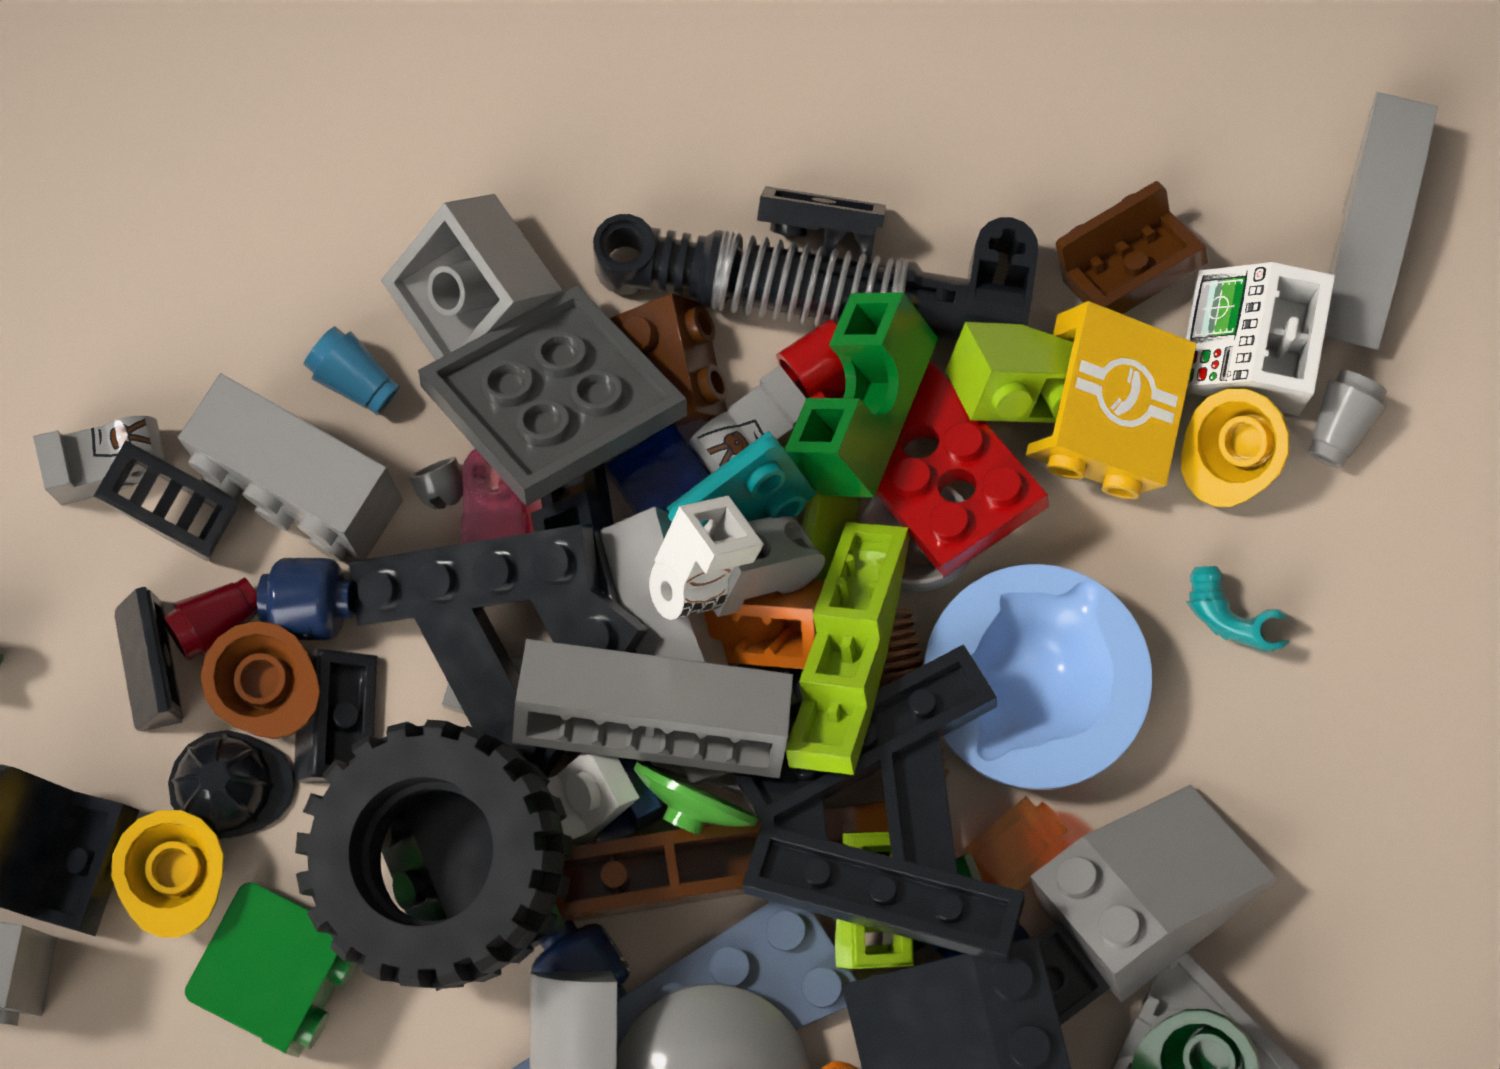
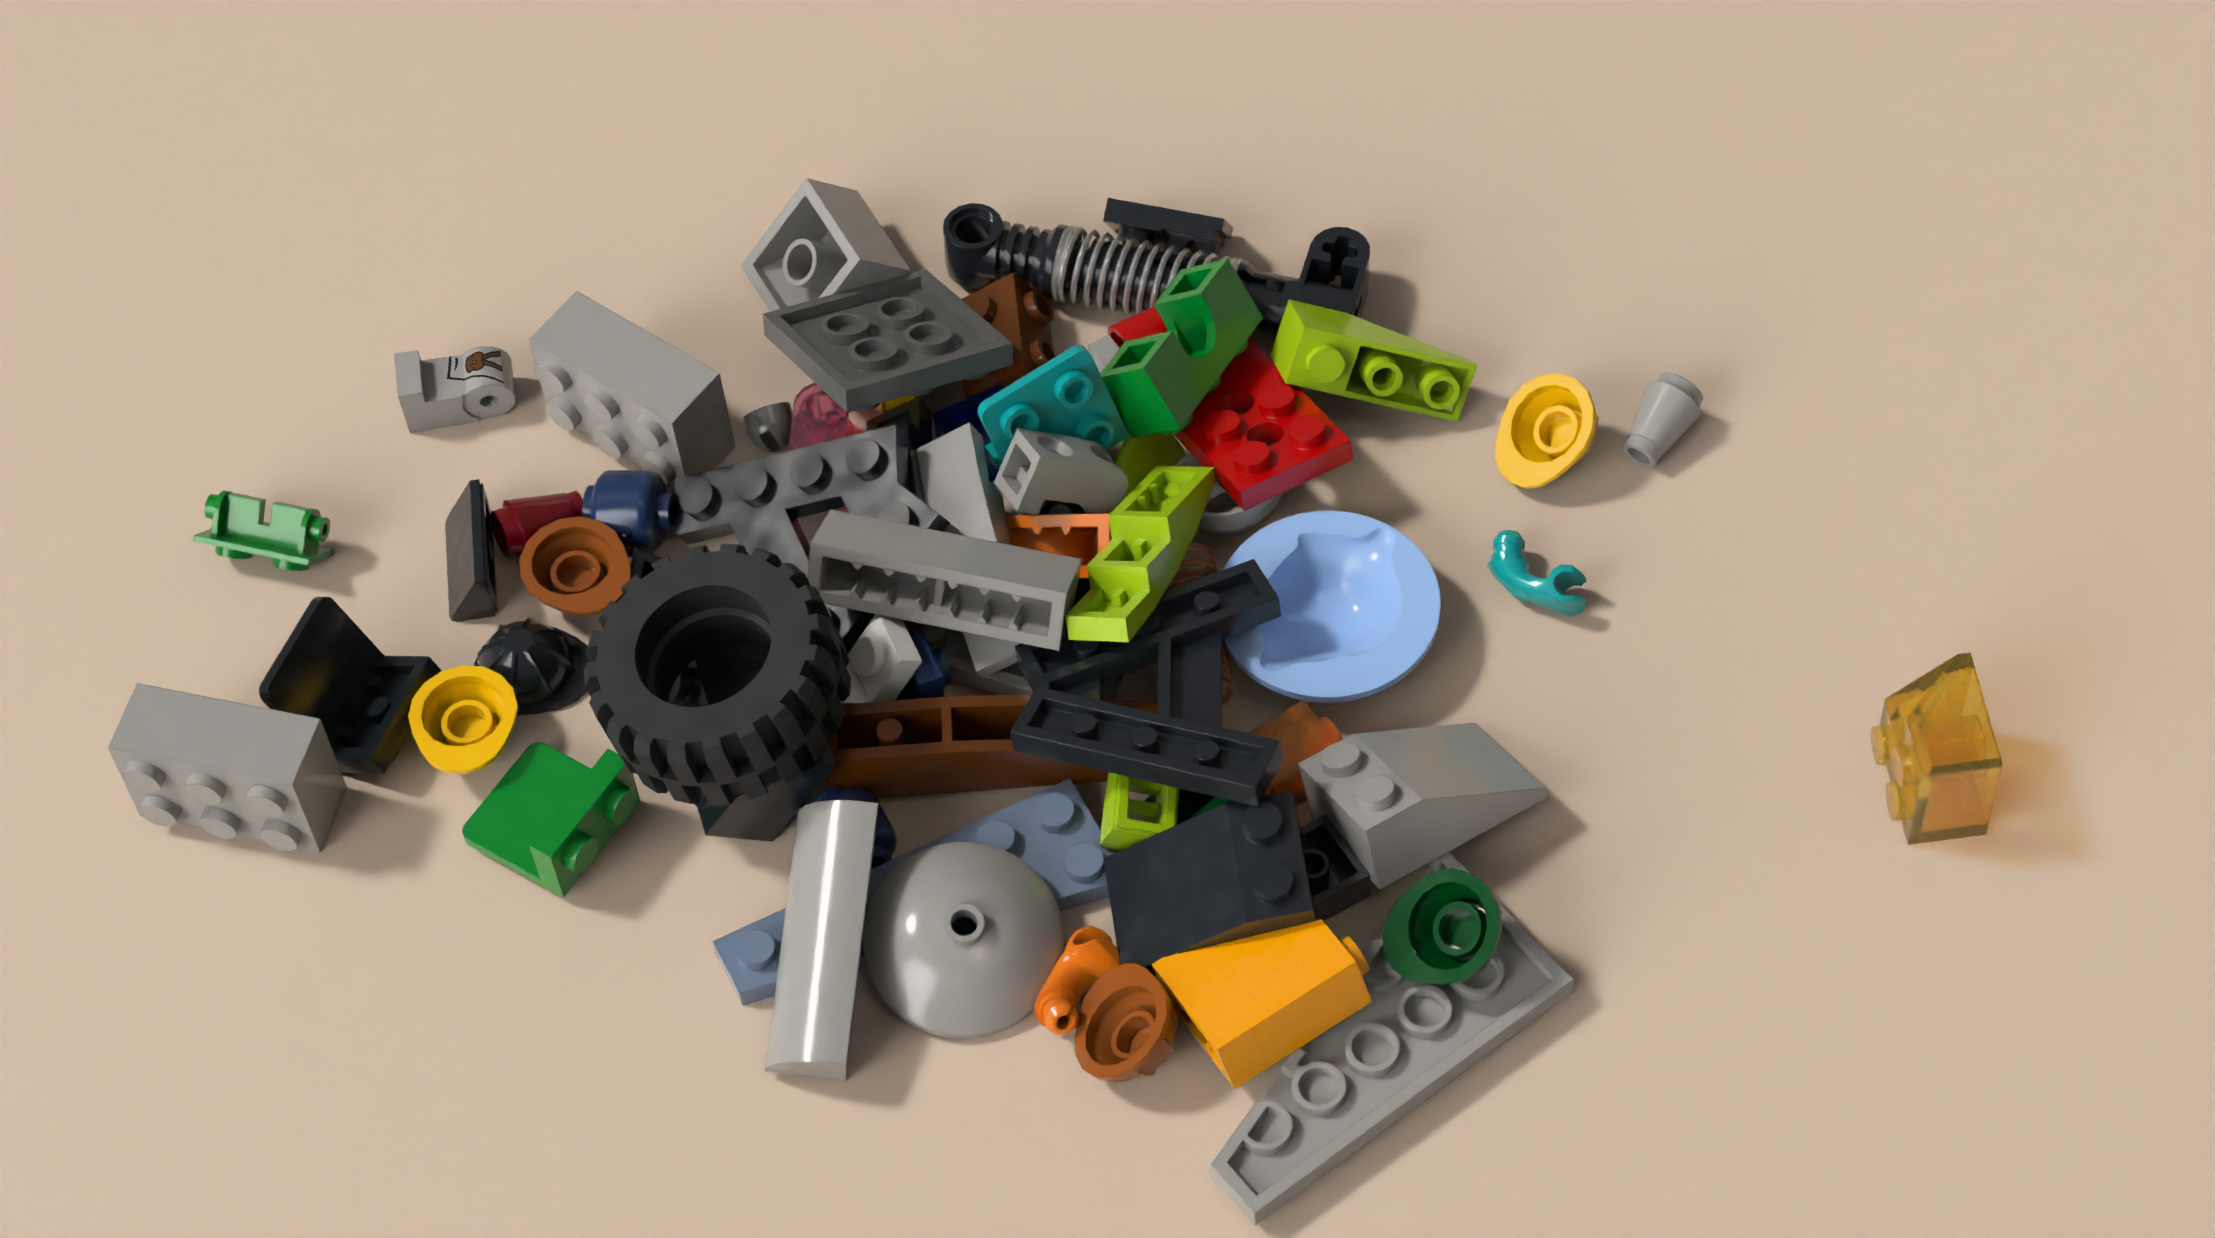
camera: 10 degrees right, 20 degrees down
(178, 480) = (500, 434): black slope -> none
(350, 370) = (698, 328): dark azure cone -> none
(690, 805) = (974, 657): bright green dish -> none
(698, 560) = (1002, 444): white leg -> none
(1117, 402) = (1429, 383): yellow panel -> none
(1129, 252) = (1459, 269): reddish brown bracket -> none
(1259, 331) = (1585, 330): white slope -> none
(1378, 218) = (1707, 259): light grey slope -> none

